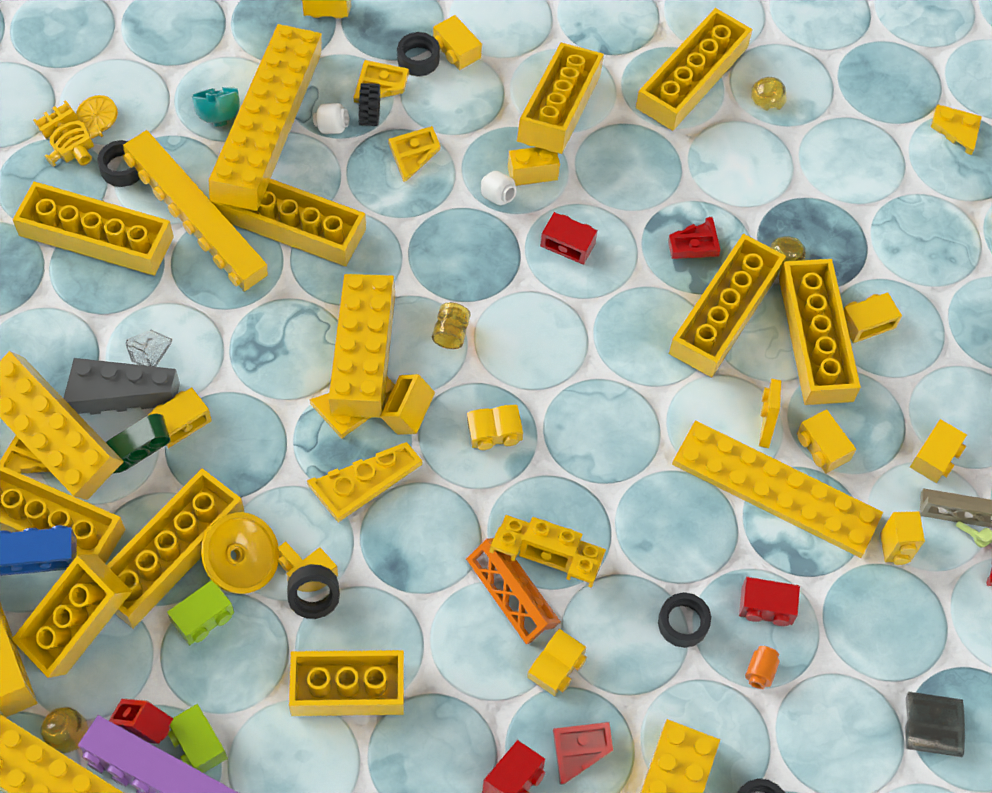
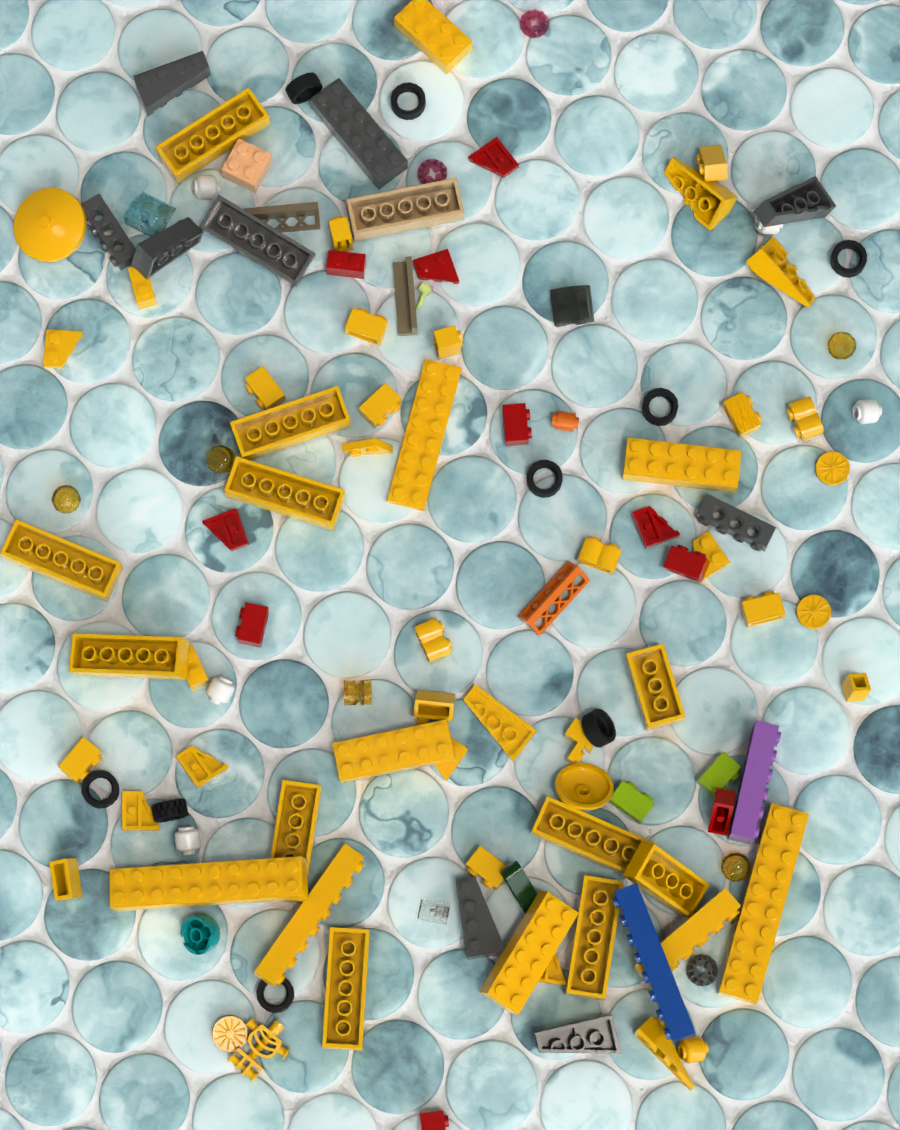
camera: 100 degrees left, 15 degrees up
(550, 546) = (516, 578): yellow bracket -> none

